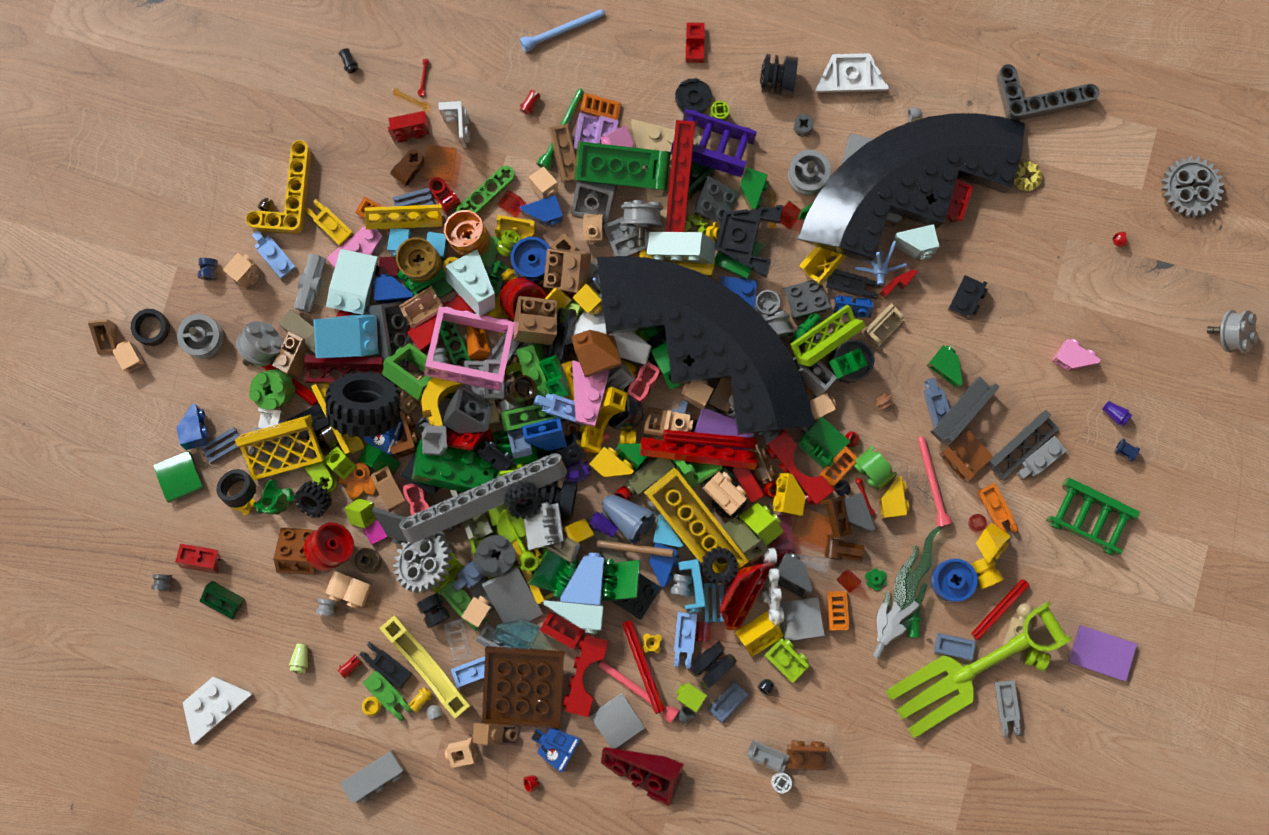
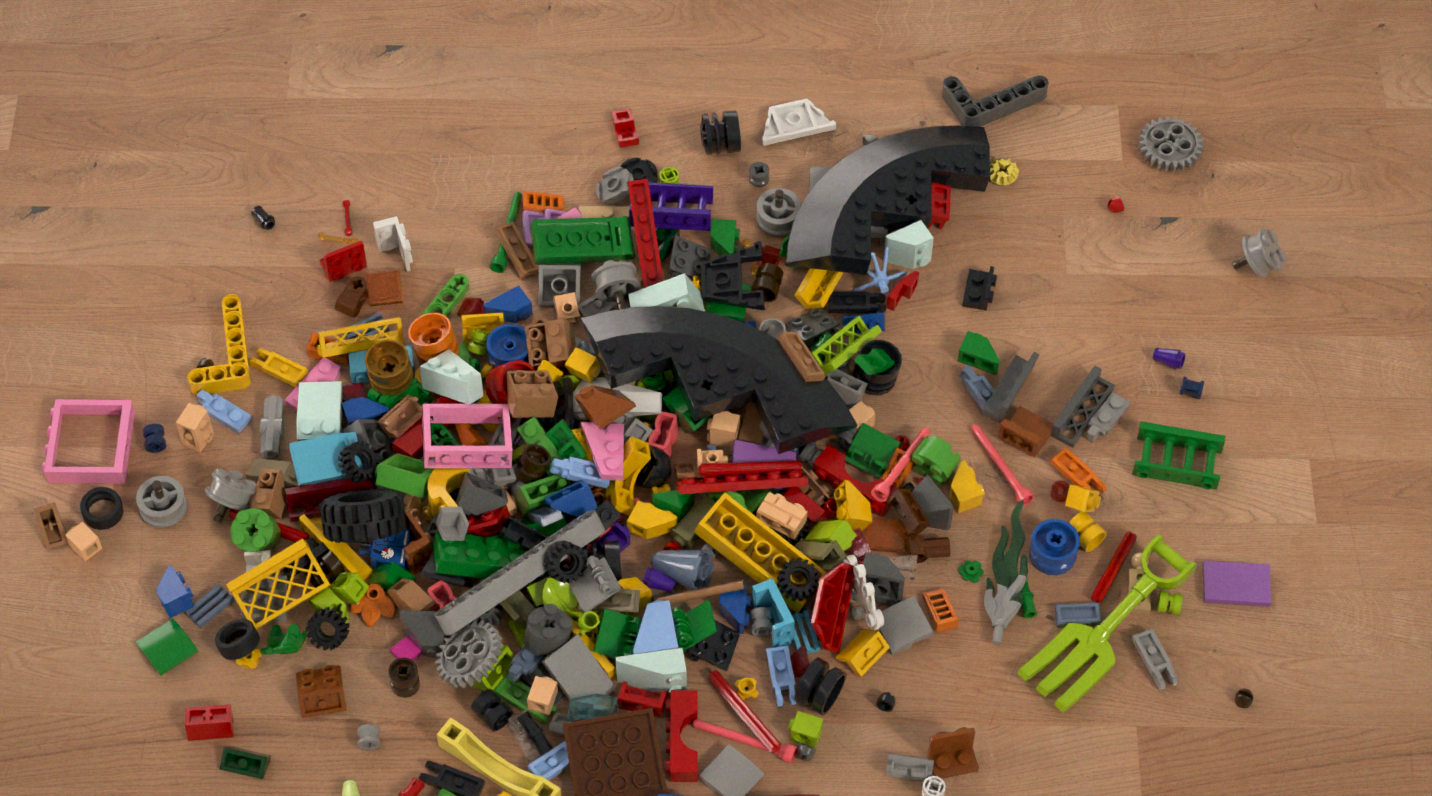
camera: 20 degrees left, 25 degrees down
(161, 582) = (171, 756): dark grey wheel -> none
(180, 267) = (92, 475): none -> bright pink window
(328, 546) = (358, 668): red wheel -> none
(348, 589) = (390, 712): light nougat brick -> none
(360, 513) = (385, 634): lime panel -> none
(361, 347) = (349, 464): none -> black tyre
(445, 196) = (398, 309): red piece -> none
(463, 643) = (535, 733): none -> black pin
(529, 42) = (451, 163): light blue piece -> none
(529, 103) = (466, 219): red pin -> none
(543, 183) = (502, 279): light nougat brick -> none
(665, 535) = (729, 572): medium azure slope -> none
(668, 106) = (614, 185): none -> light grey tile
(728, 701) = (849, 727): sand blue tile -> none
(777, 247) = (769, 280): none -> dark brown wheel
(783, 346) = (801, 356): none -> medium nougat tile
(787, 660) = (901, 666): lime bracket -> none
(818, 492) = (882, 490): none -> coral piece
(849, 580) = (942, 575): clear red slope -> none
(883, 401) = (923, 399): nougat plate -> none
(884, 325) = (902, 329): tan hinge -> none
(1069, 766) = (1242, 700): none -> dark brown hinge
(1073, 356) = (1108, 316): bright pink slope -> none

